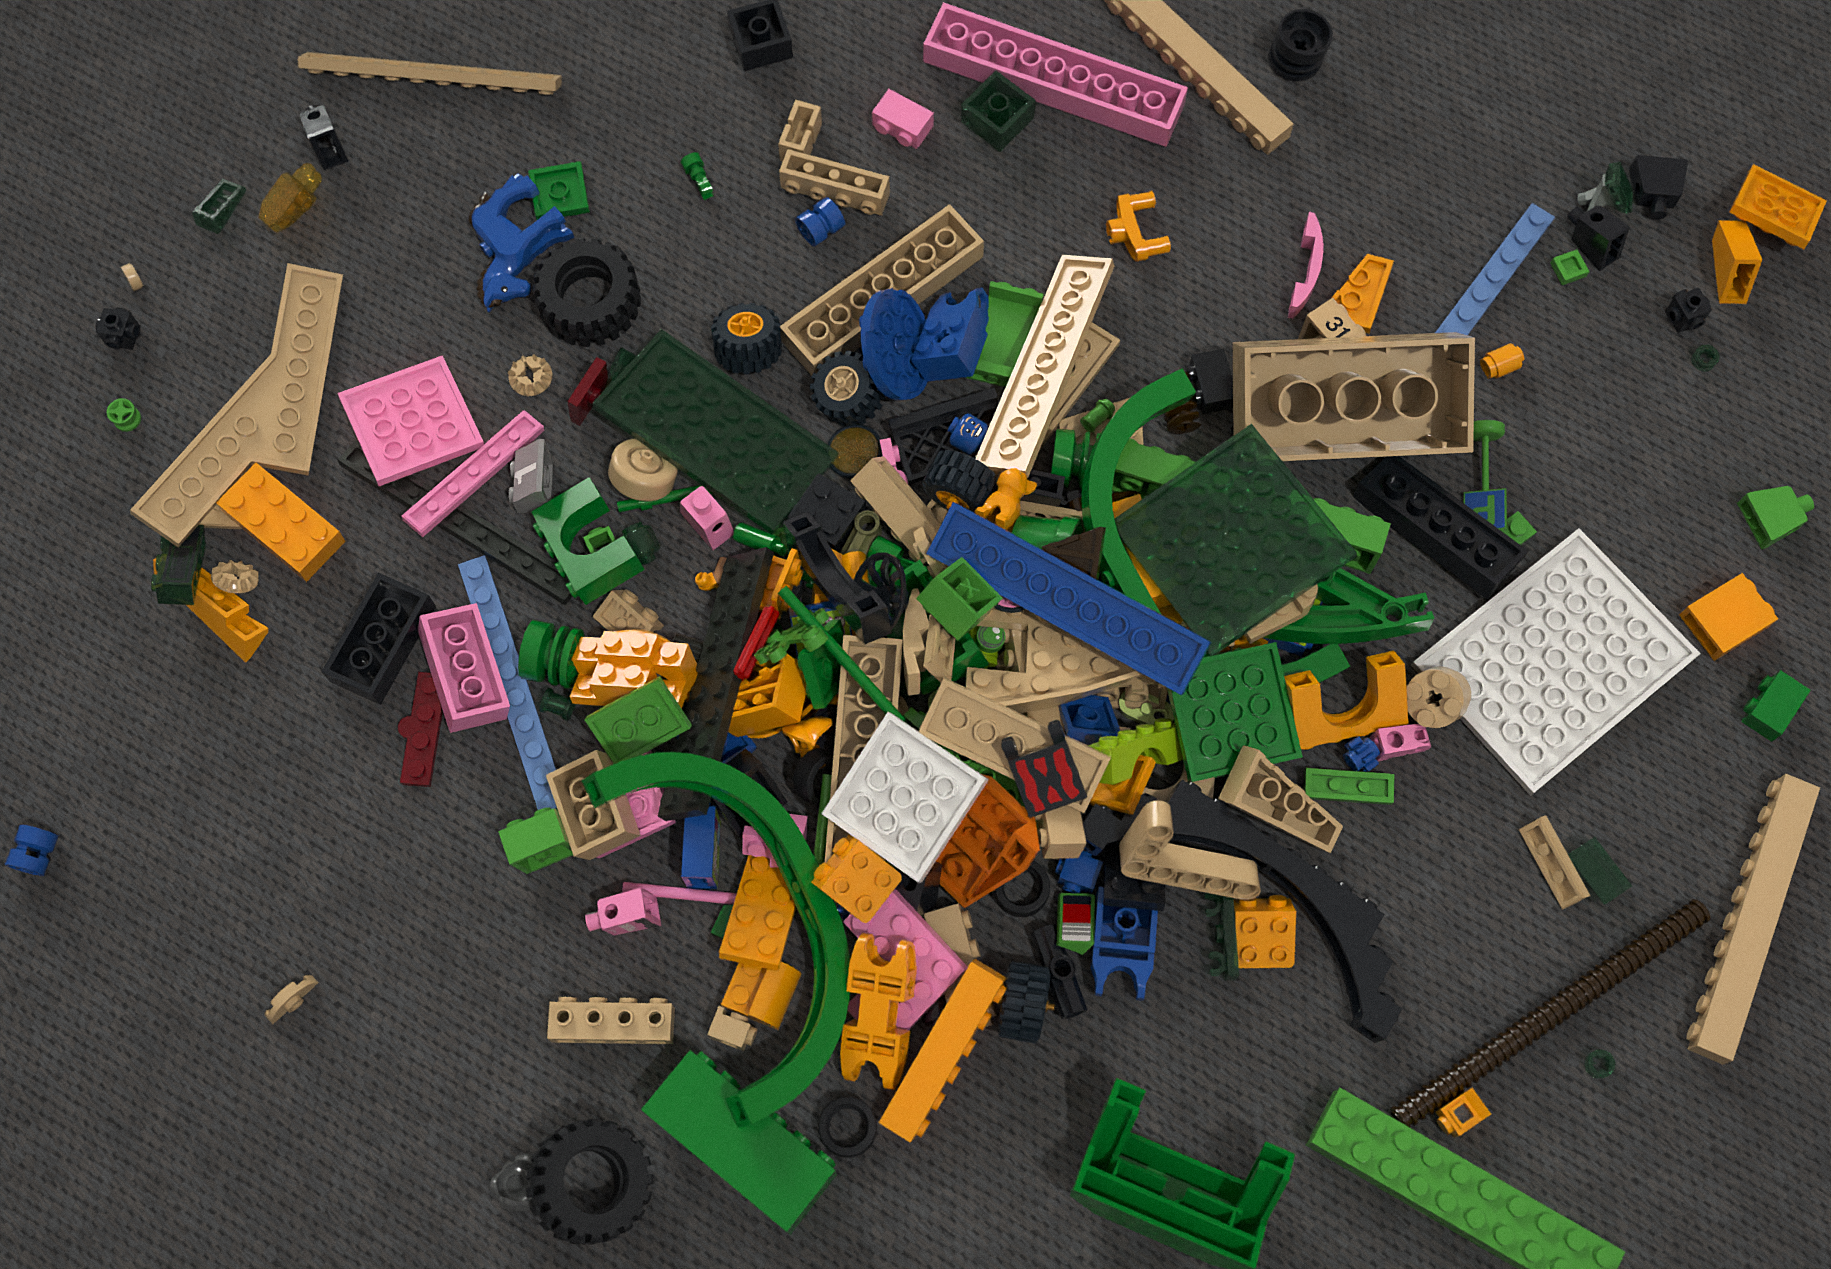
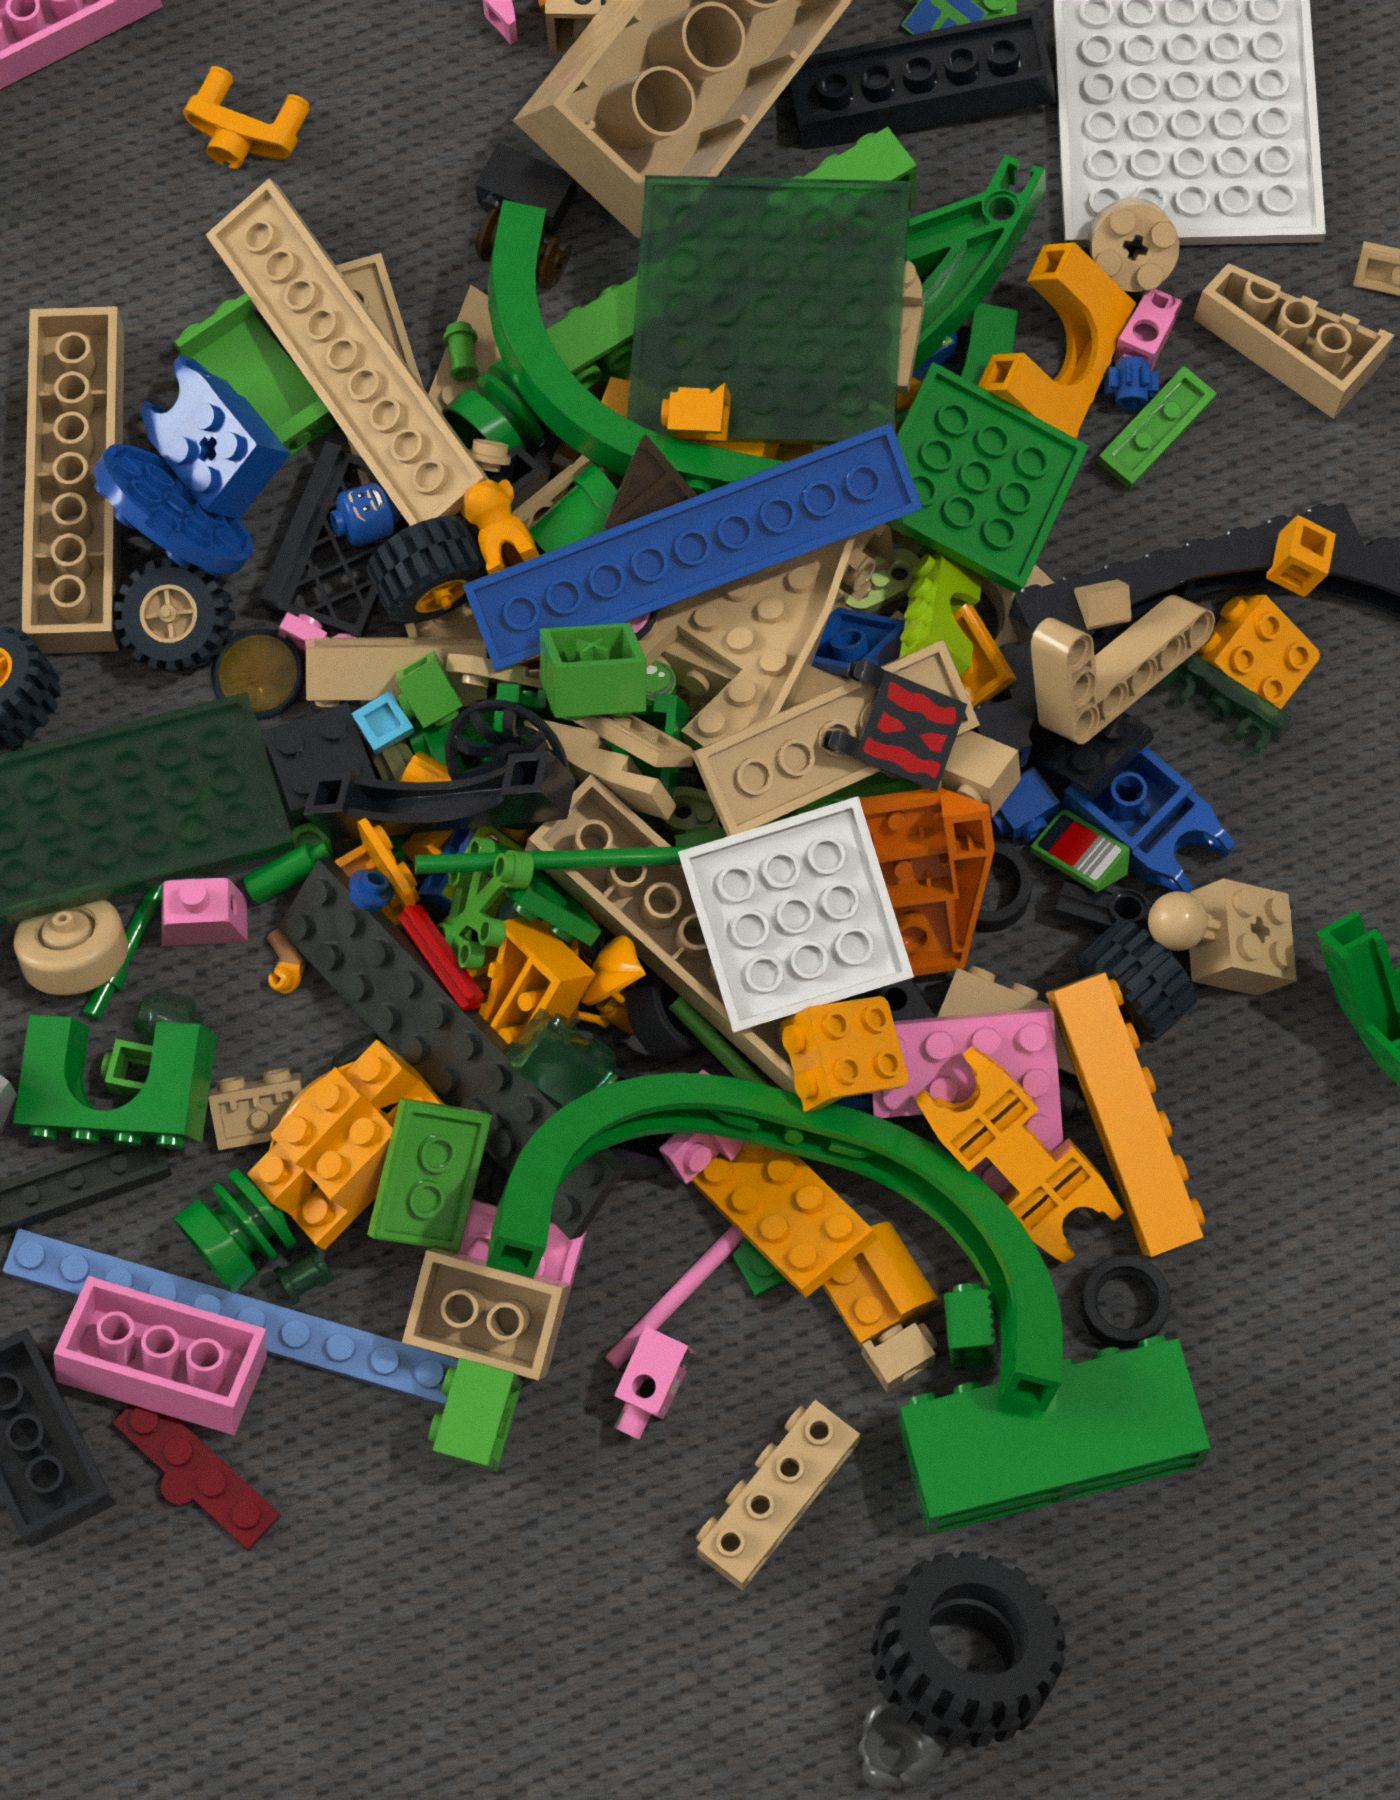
camera: 50 degrees left, 0 degrees up
(701, 850) = (649, 1229): blue brick -> none
(739, 739) = (560, 1059): none -> clear green brick
(766, 581) = (370, 890): none -> blue plate
(767, 1051) = (970, 1326): none -> green brick
(866, 524) = (383, 722): none -> medium azure plate
(897, 533) = (428, 691): none -> bright green brick
(1044, 466) = (490, 454): none -> tan plate
(1088, 1031) = (1233, 932): none -> tan brick
(1144, 547) = (697, 414): none -> light orange window
(1214, 829) = (1104, 603): none -> tan slope
(1271, 797) = (1113, 514): tan wedge -> none
(1329, 913) = (1301, 556): none -> light orange brick
(1458, 820) = (1292, 338): none -> tan wedge

